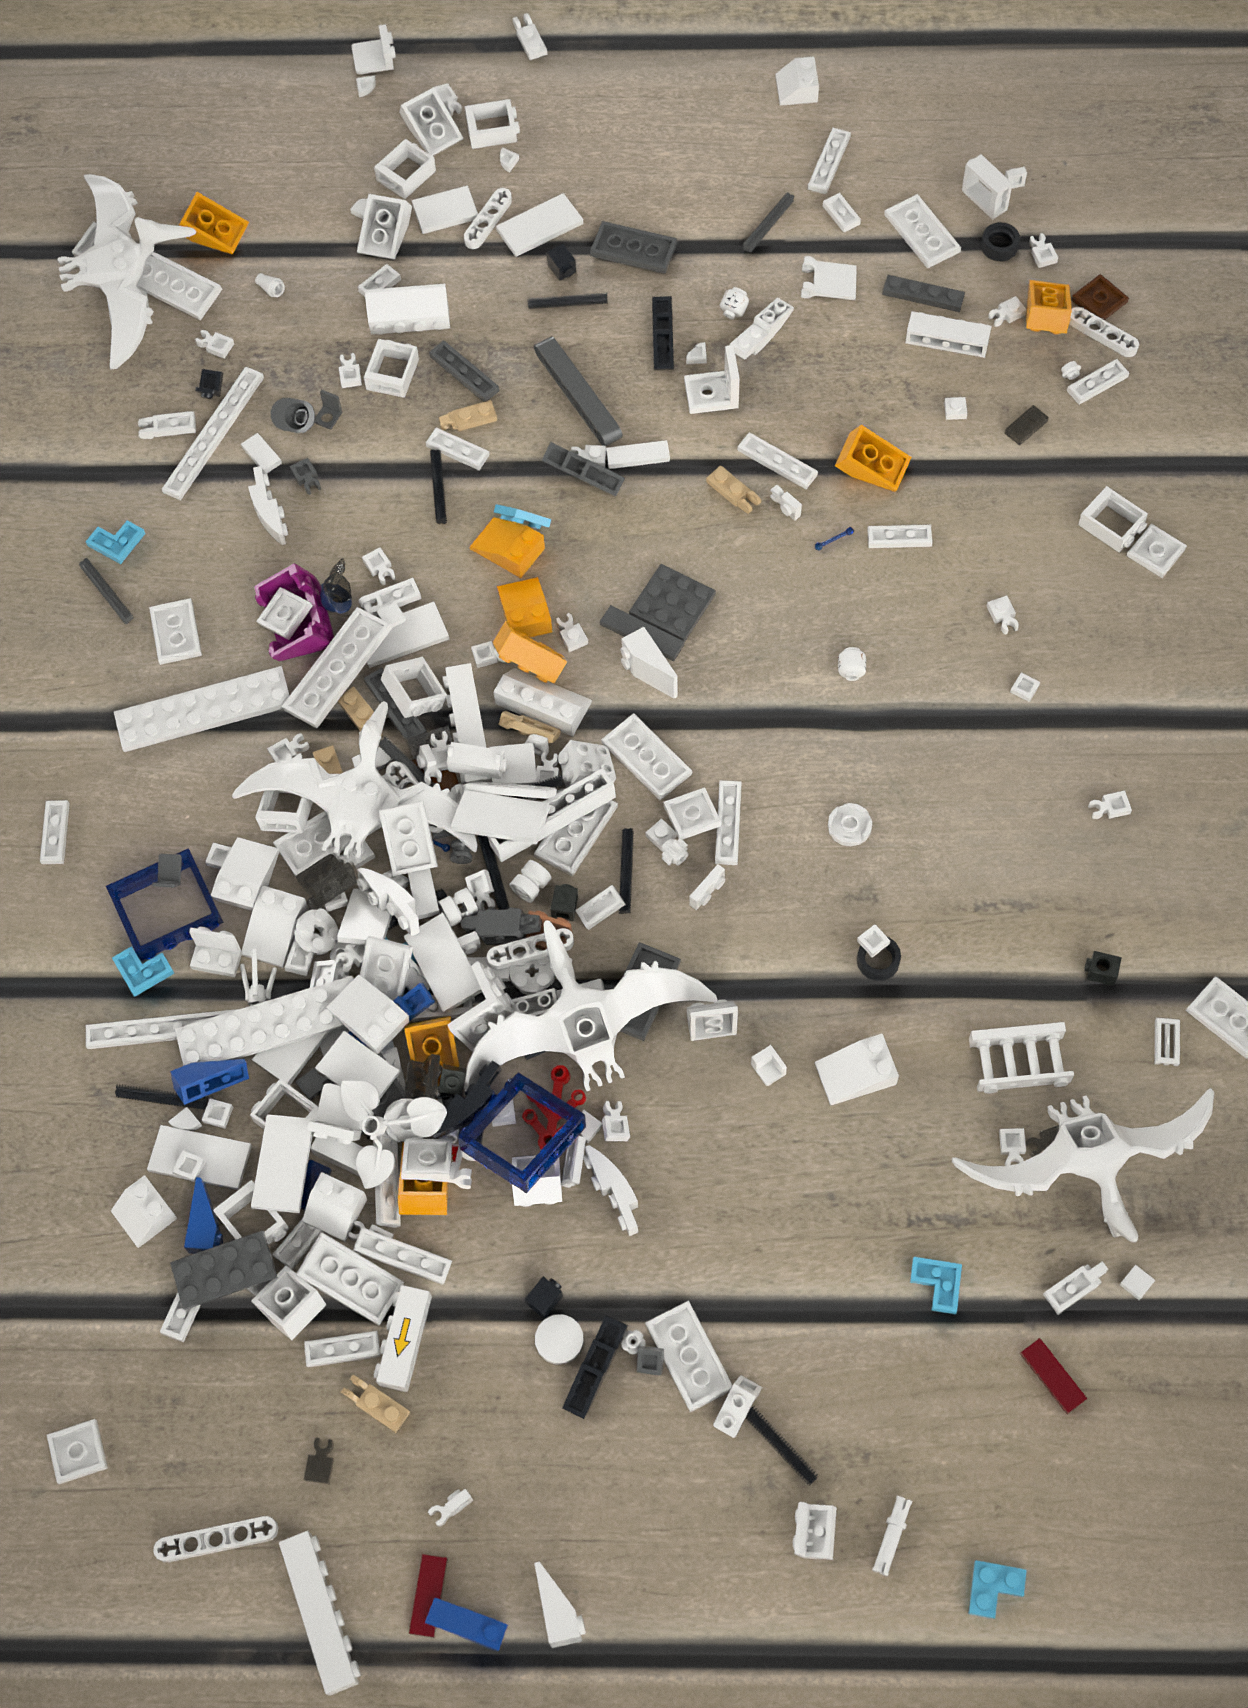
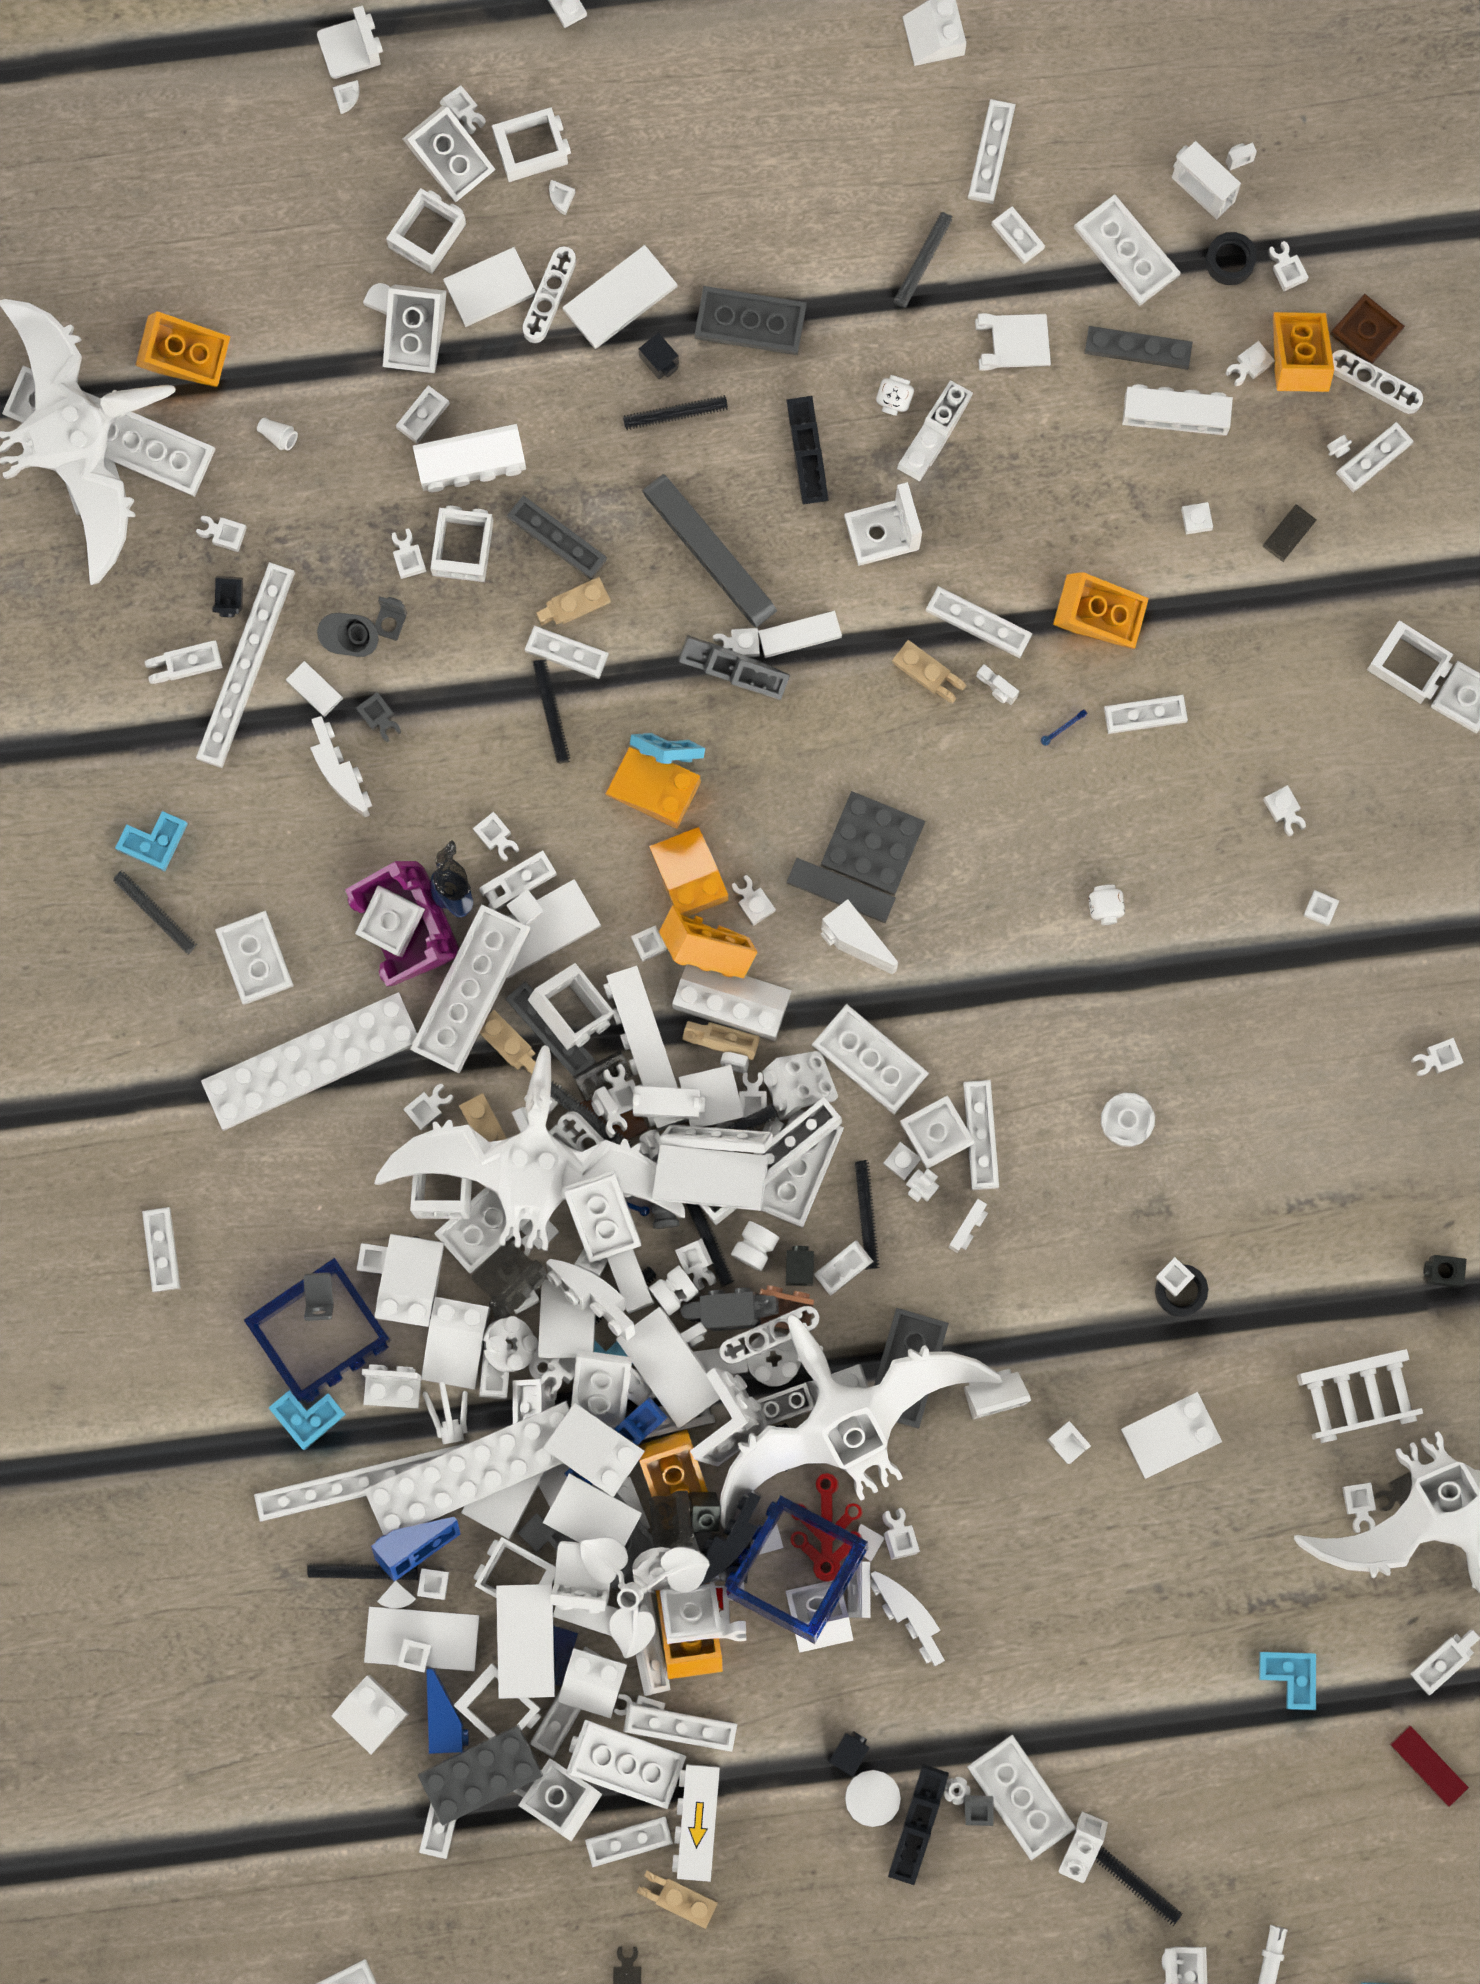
camera: 10 degrees left, 15 degrees up
(697, 354) = (856, 474): white tile -> none

